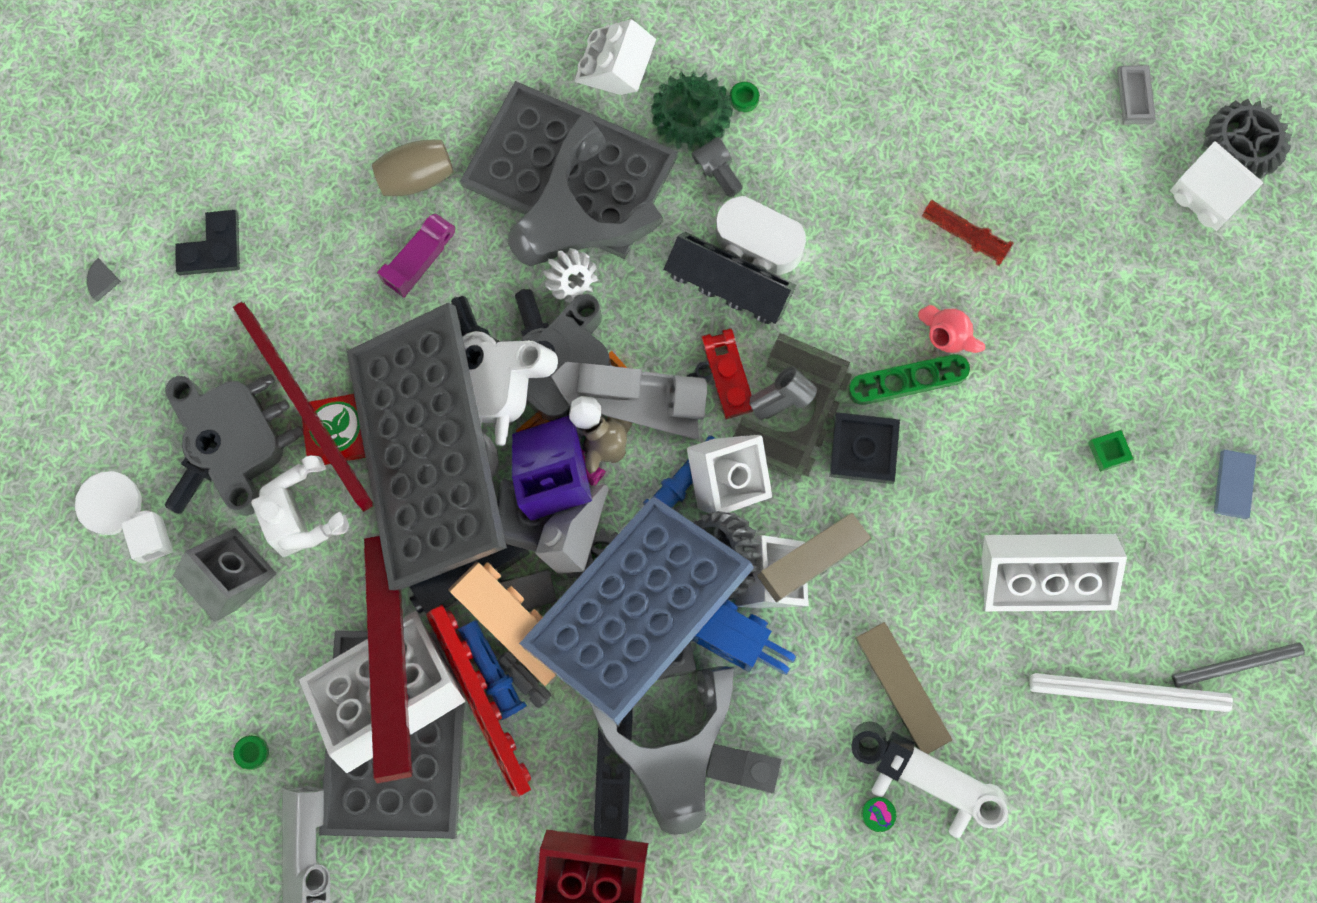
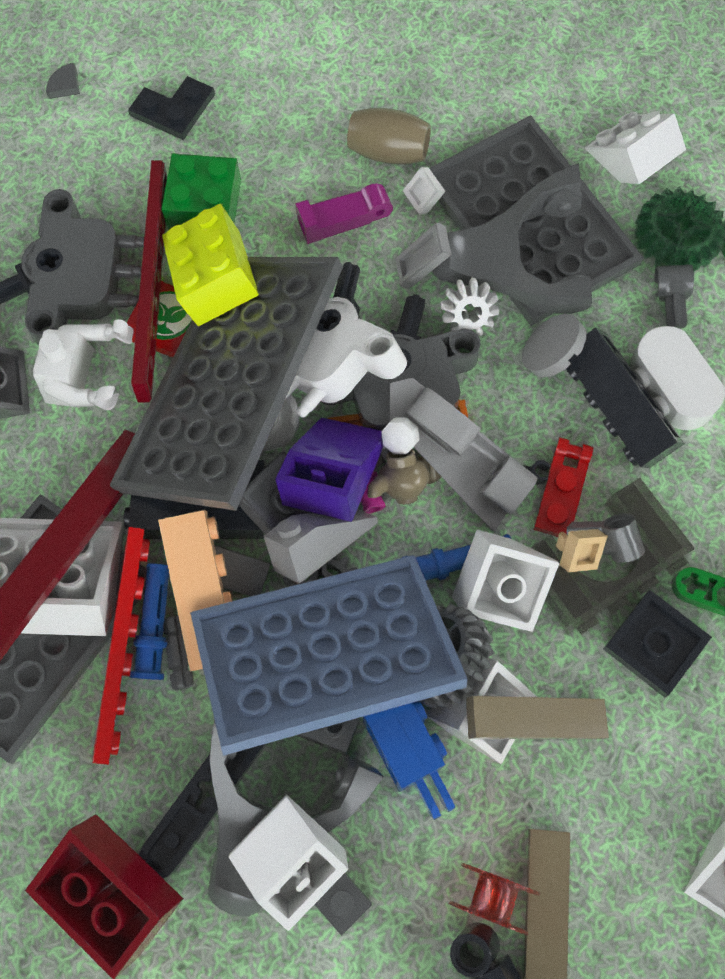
camera: 30 degrees right, 5 degrees down
(292, 309) = (199, 185): none -> green brick
(344, 367) = (209, 265): none -> neon yellow brick
(470, 197) = (423, 190): none -> white tile
(507, 255) = (423, 255): none -> light grey tile
(653, 267) = (553, 345): none -> light grey tile
(706, 768) = (288, 862): none -> white slope
(771, 415) = (581, 549): none -> tan tile
(860, 699) = (494, 898): none -> clear red piece

